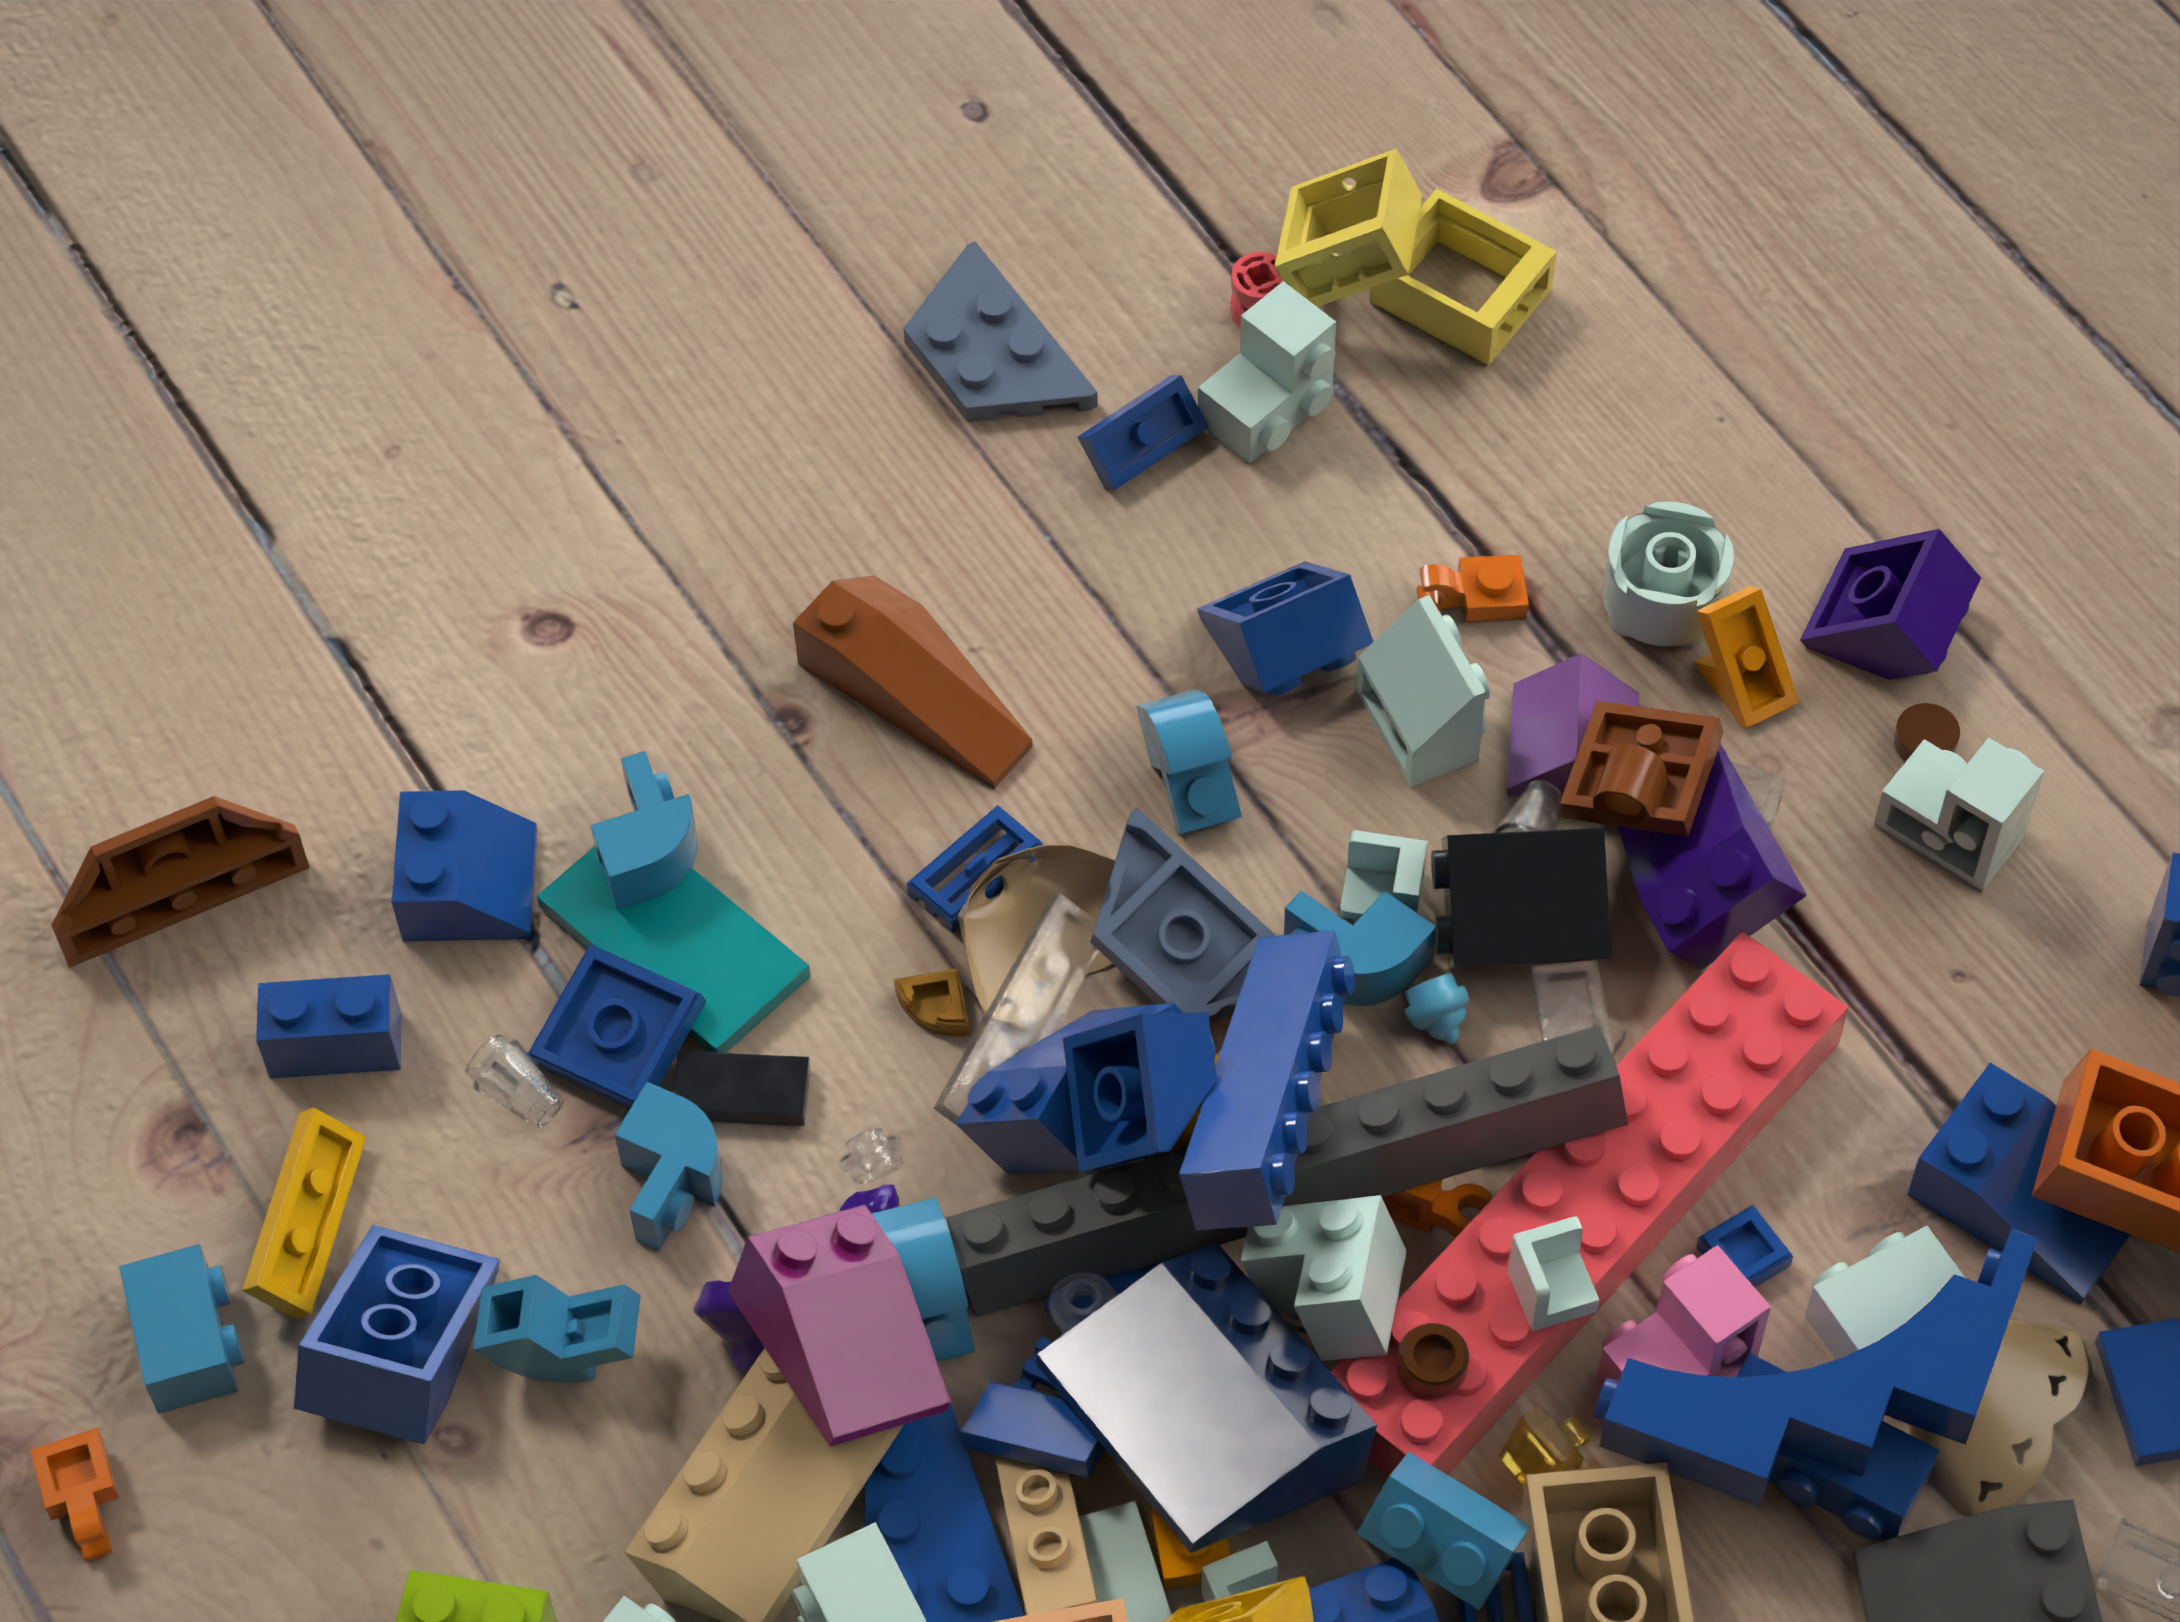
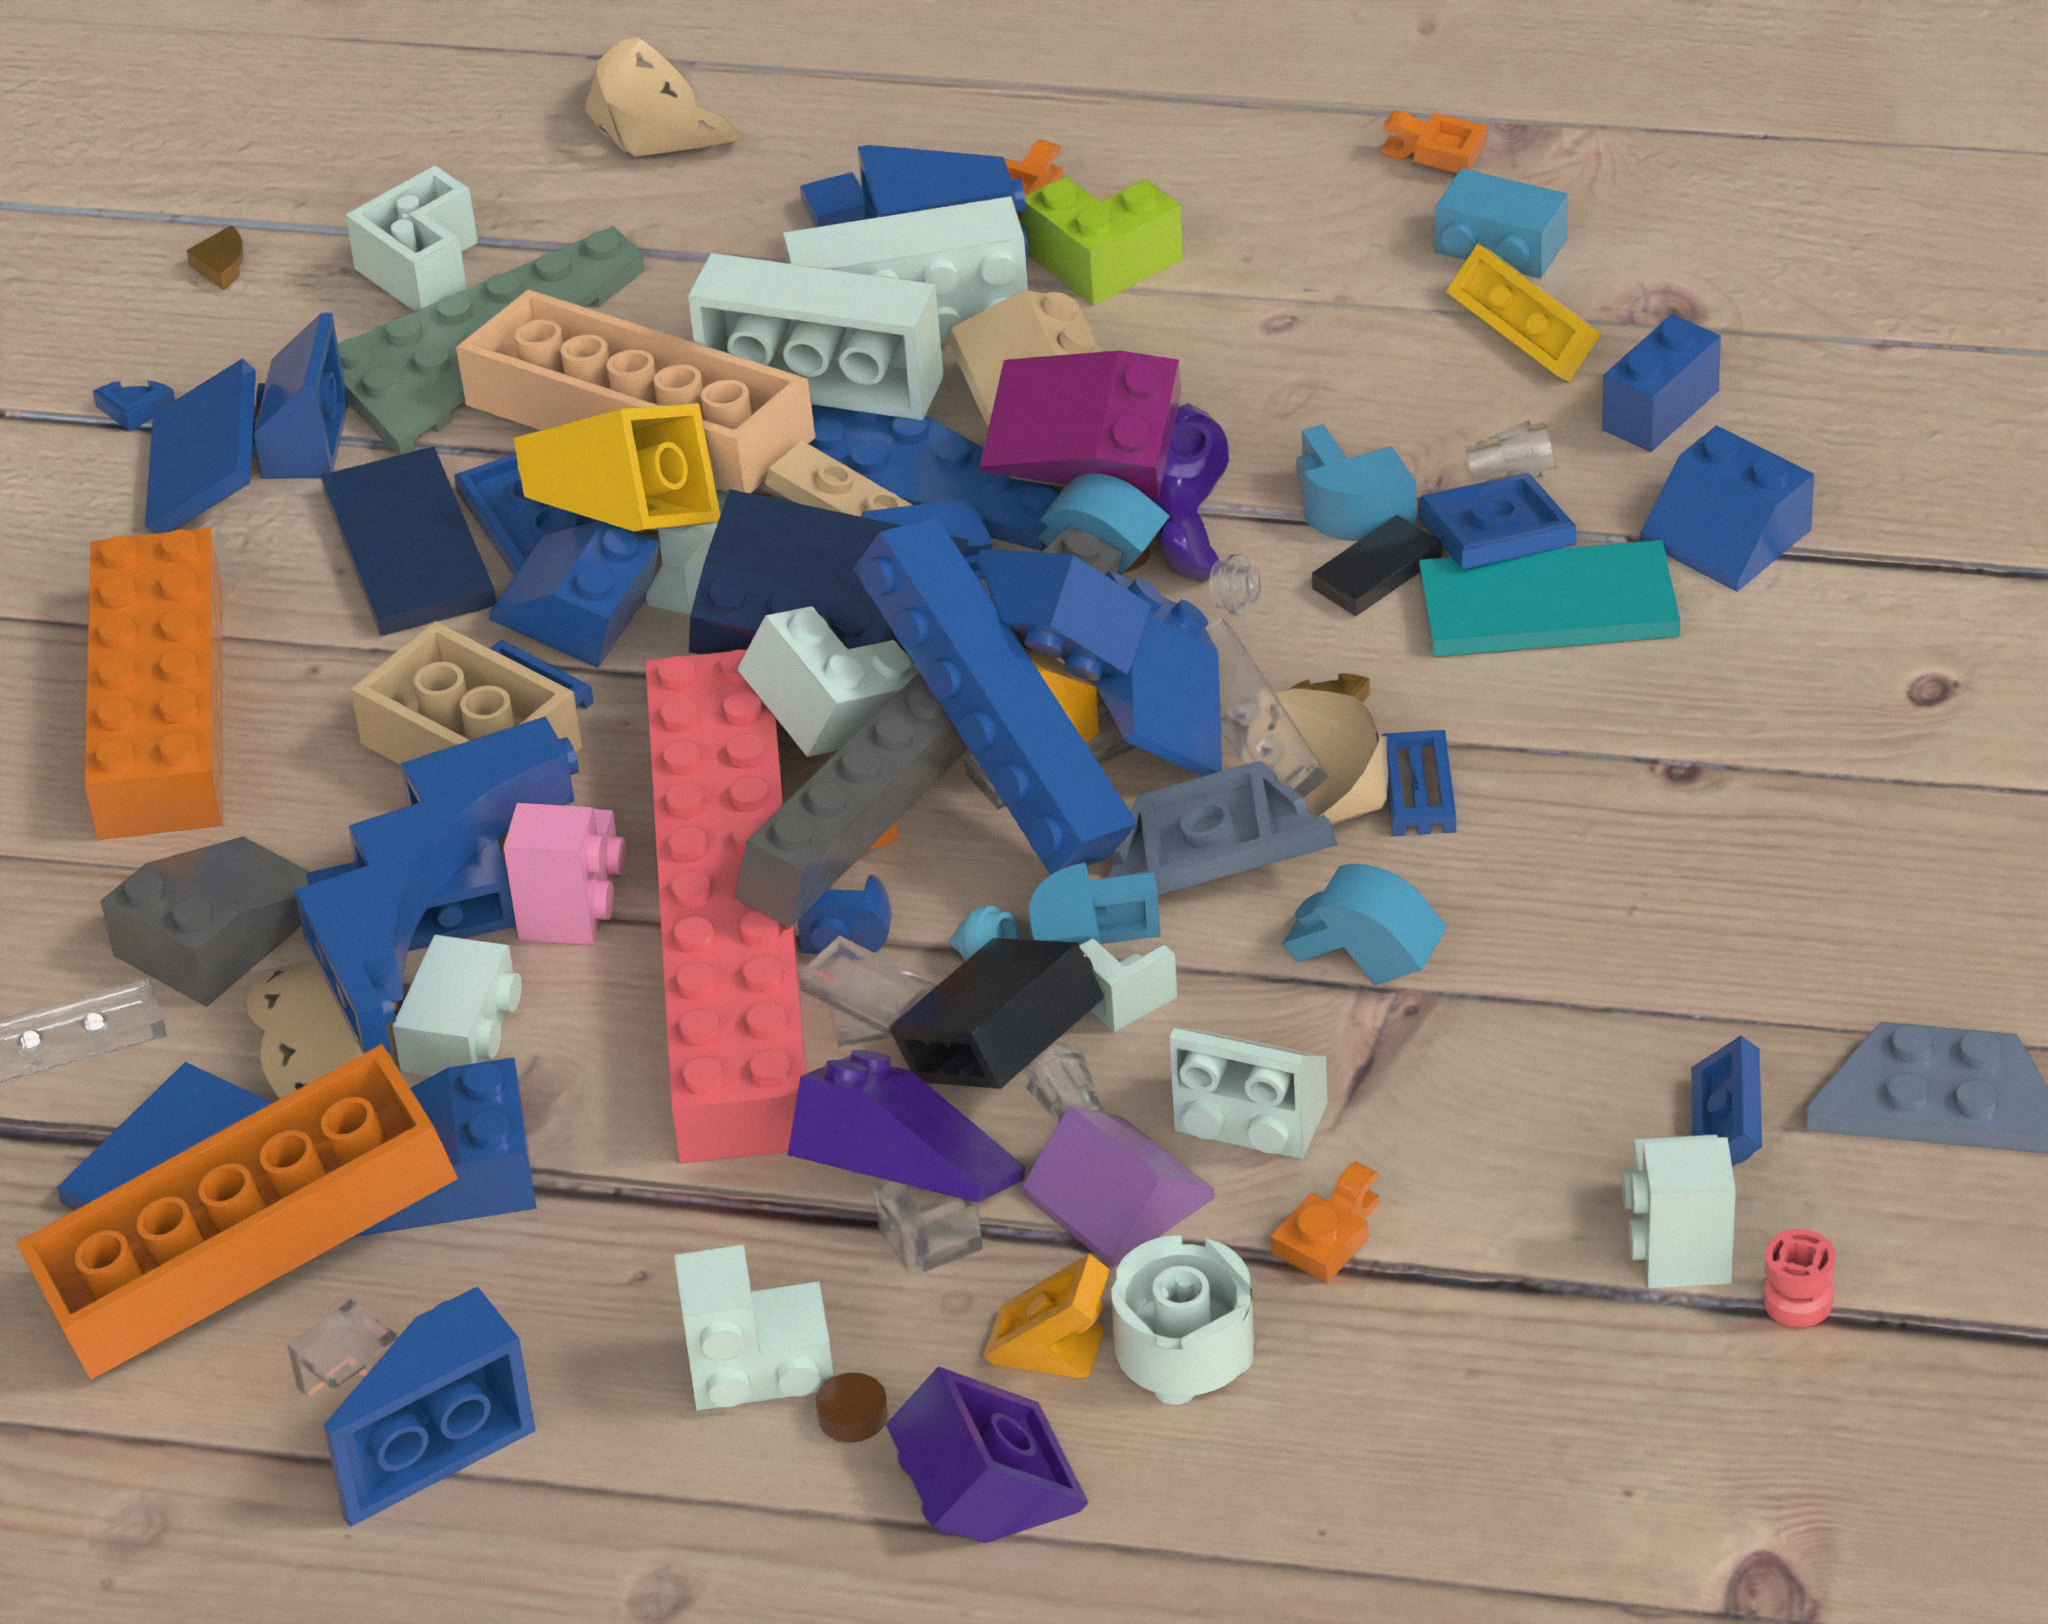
camera: 135 degrees right, 15 degrees down
(172, 873) = (1895, 373): dark orange wedge -> none
(393, 1334) = (1377, 305): blue slope -> none
(553, 1335) = (1289, 365): dark azure brick -> none
(653, 845) = (1632, 594): dark azure brick -> none
(910, 673) = (1663, 829): dark orange wedge -> none
(1288, 626) = (1426, 1067): blue slope -> none
(1346, 235) = (1777, 1329): light yellow window -> none
(1433, 1360) = (703, 688): reddish brown tile -> none
(1443, 1530) = (595, 633): dark azure brick -> none
(1518, 258) = (1657, 1379): light yellow window -> none
(1543, 1446) = (601, 763): clear yellow tile -> none
(1551, 1274) = (679, 763): light aqua panel -> none
(1642, 768) = (1002, 1111): dark orange plate -> none
(1749, 1245) = (597, 982): blue tile -> none

